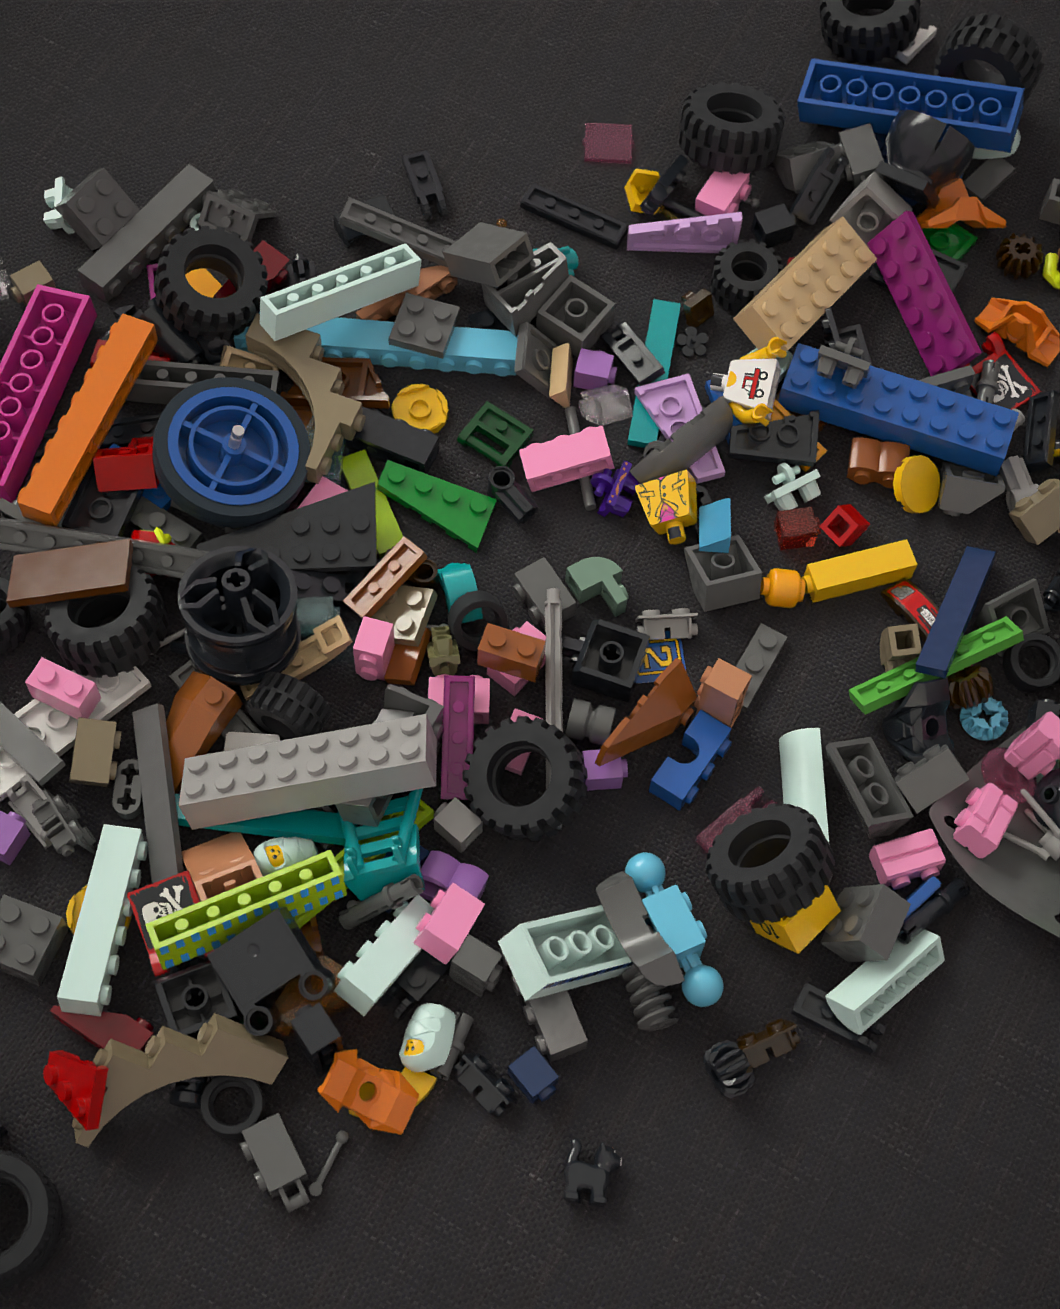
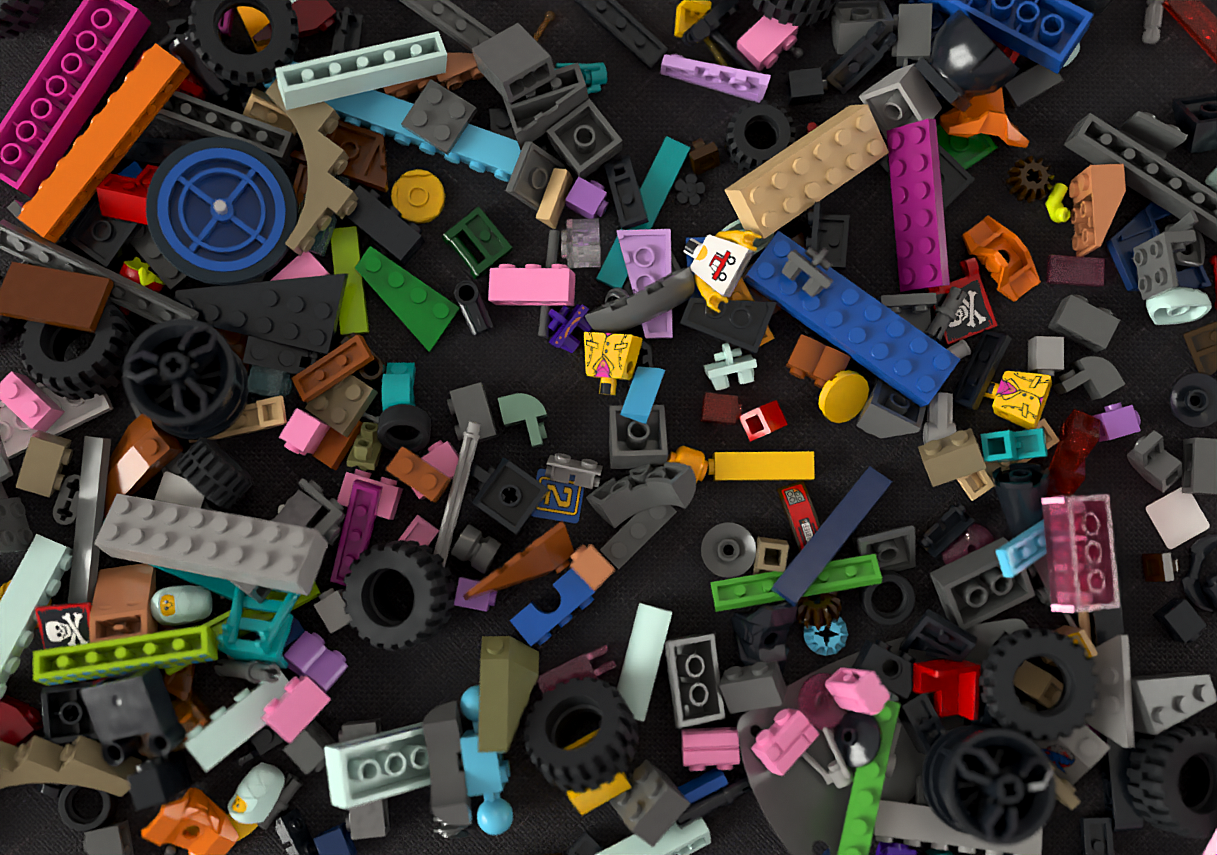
camera: 20 degrees right, 20 degrees up
(670, 843) = (506, 680): none -> olive wedge
(749, 620) = (642, 490): none -> dark grey brick
(857, 646) = (717, 560): none -> dark grey dish

